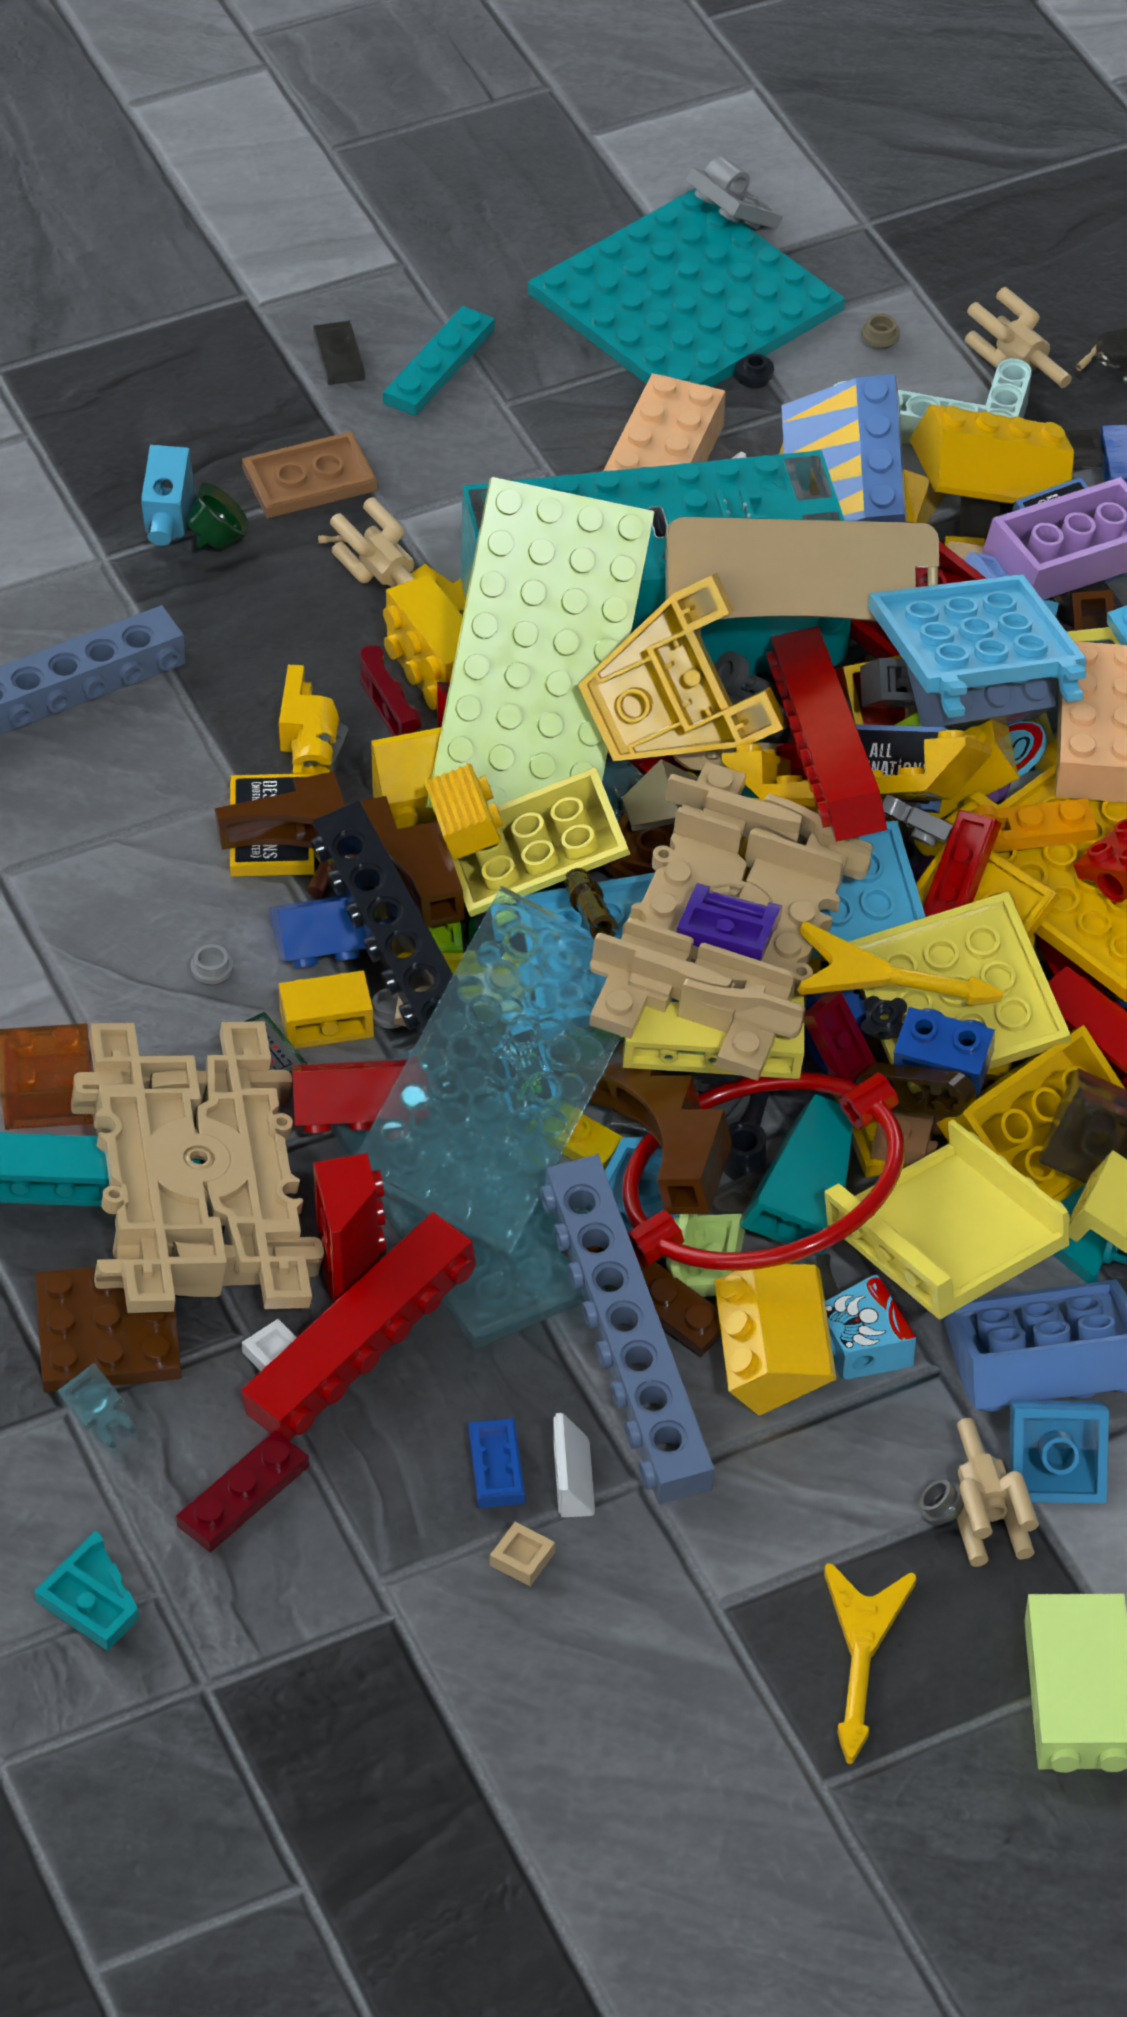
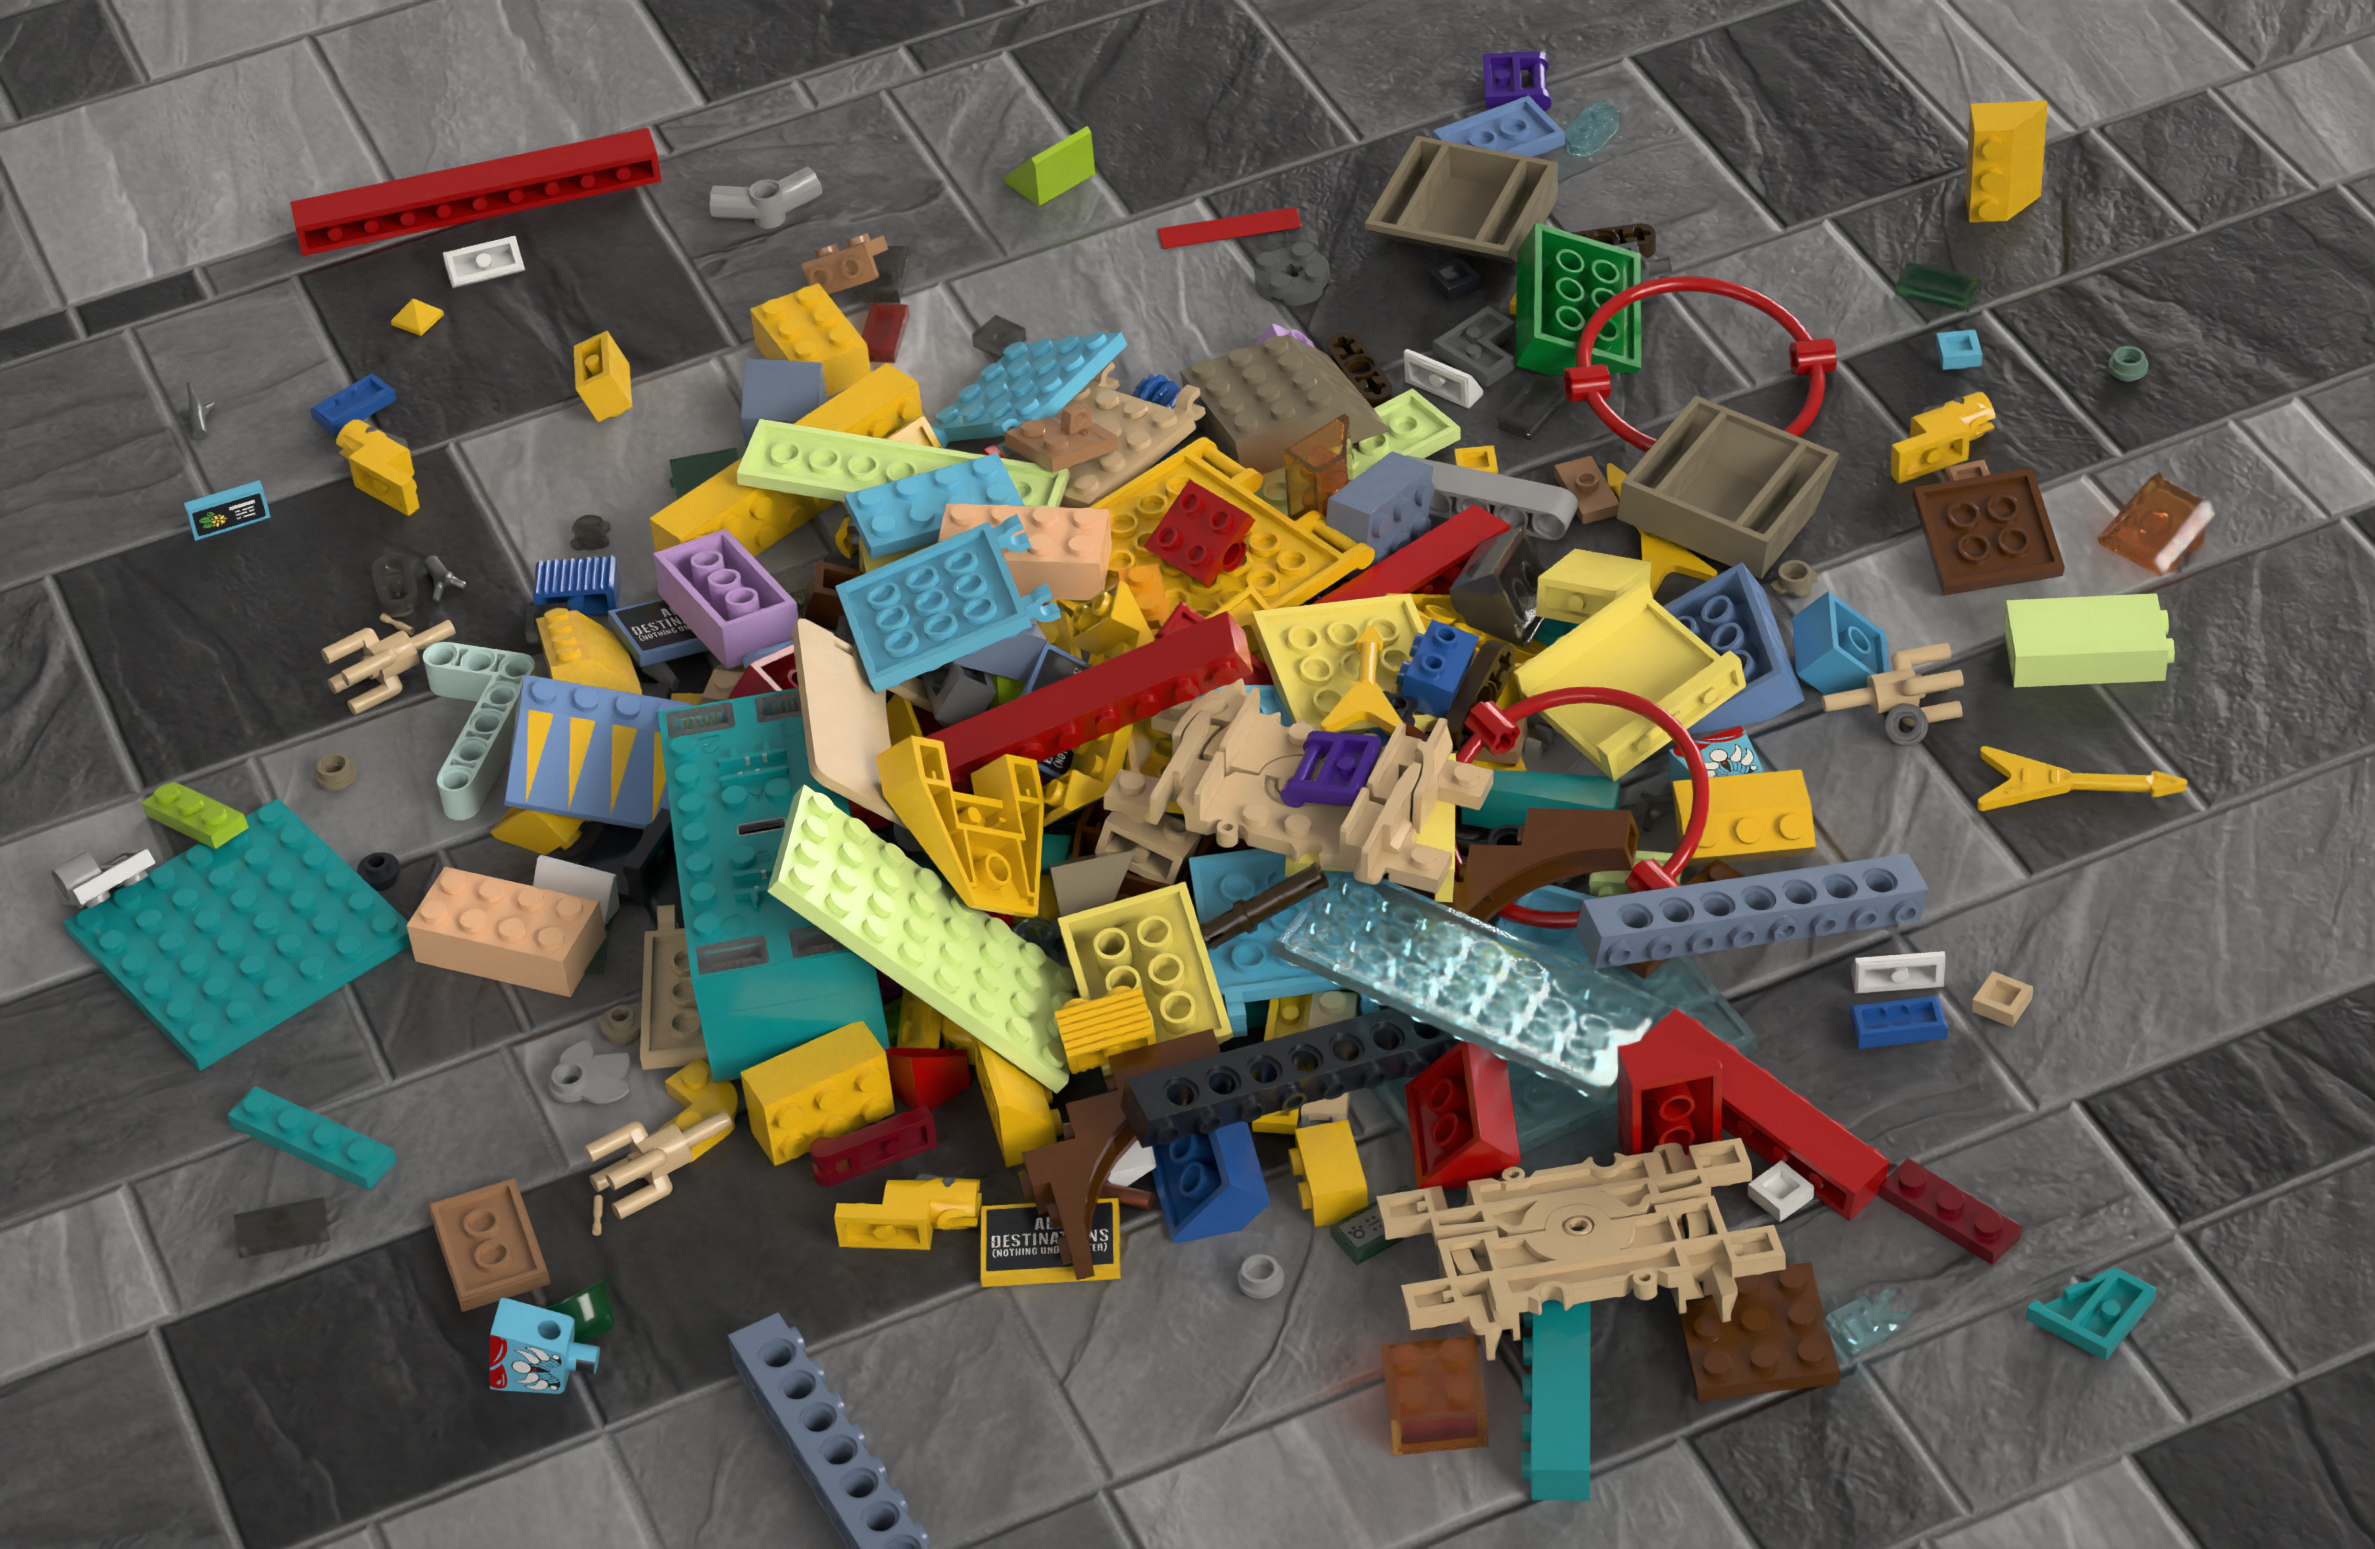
camera: 85 degrees left, 5 degrees down
(818, 246) = (194, 814): none -> lime plate

